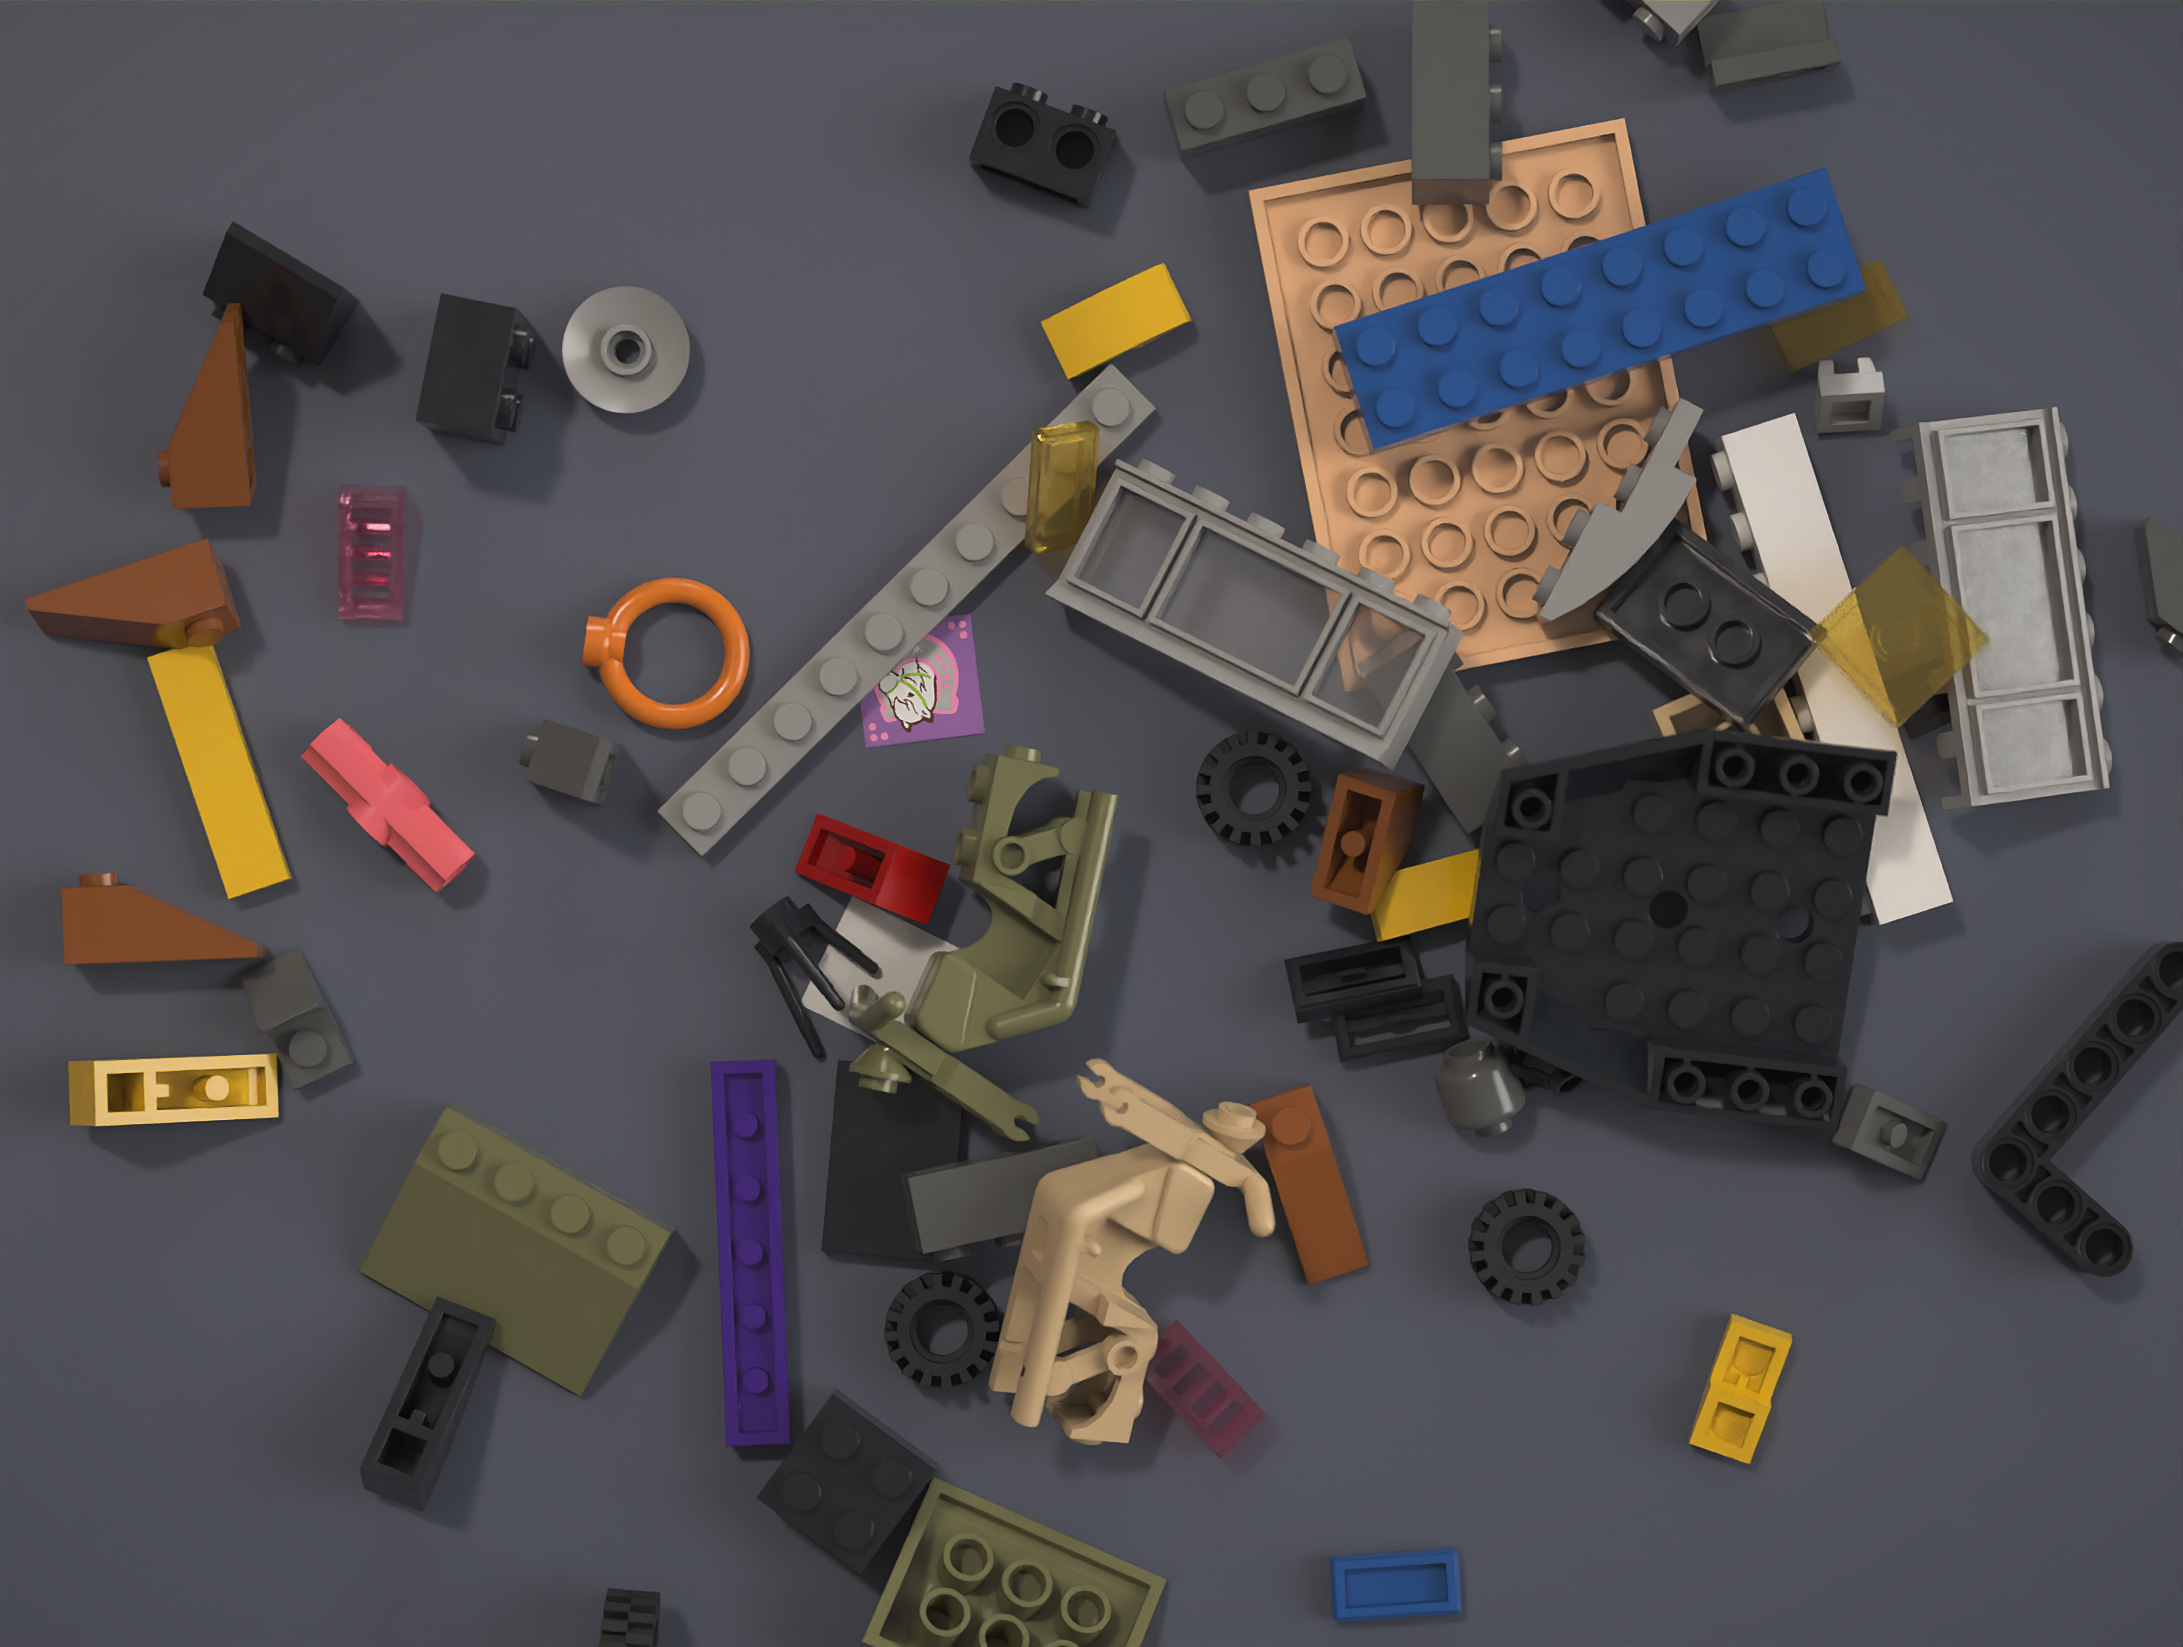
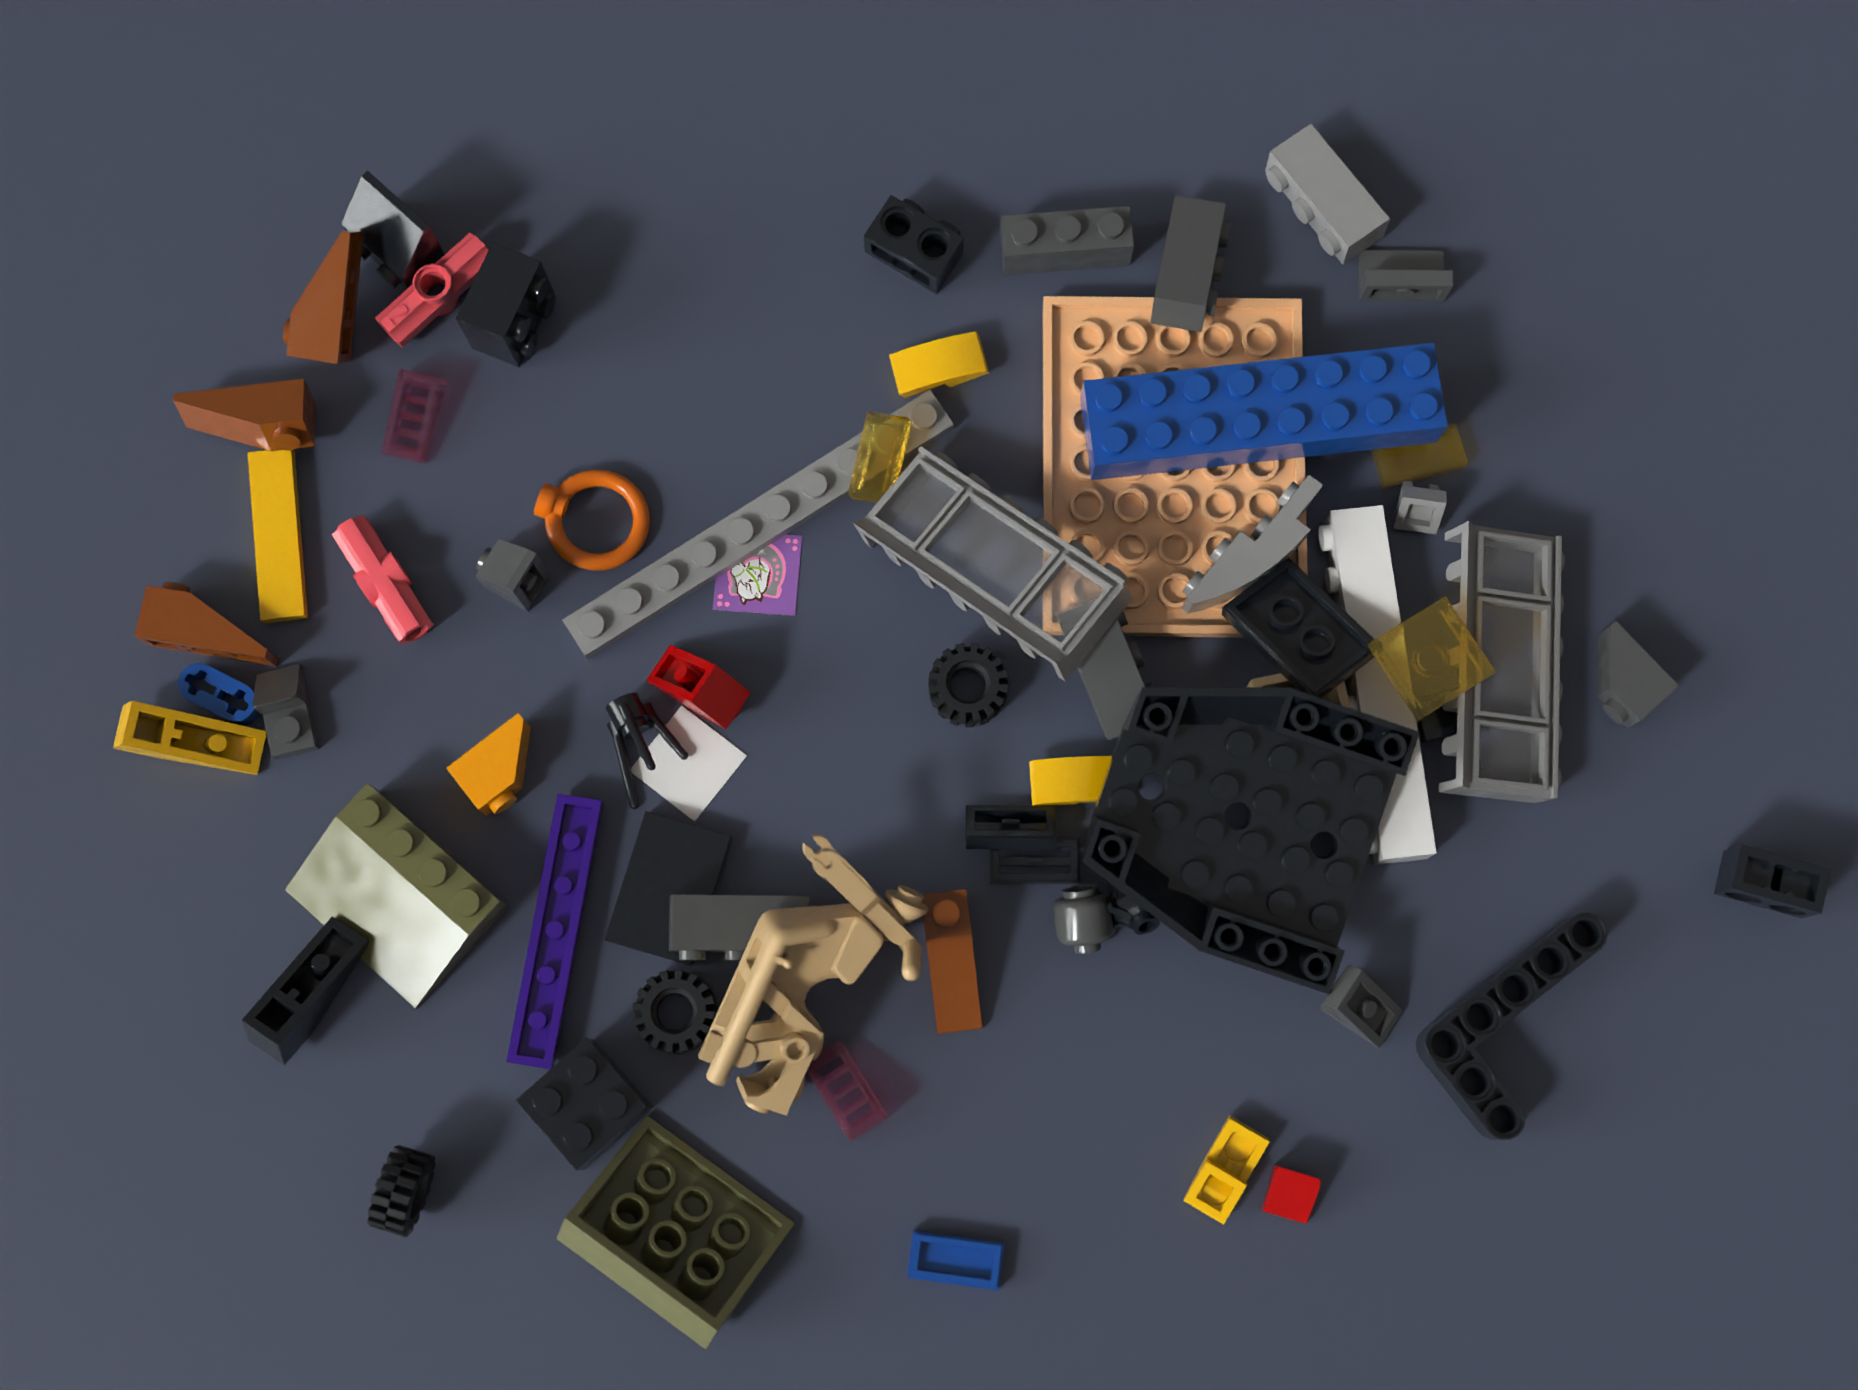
camera: 10 degrees right, 10 degrees down
(193, 1030) = (215, 703): none -> blue beam
(382, 321) = (415, 308): none -> coral piece
(605, 323) = (604, 300): light grey dish -> none
(613, 1044) = (495, 767): none -> light orange slope
(1024, 966) = (780, 771): olive piece -> none
(1365, 837) = (1037, 730): dark orange slope -> none
(1566, 1249) = (1122, 1037): black tyre -> none
(1834, 1404) = (1291, 1194): none -> red slope

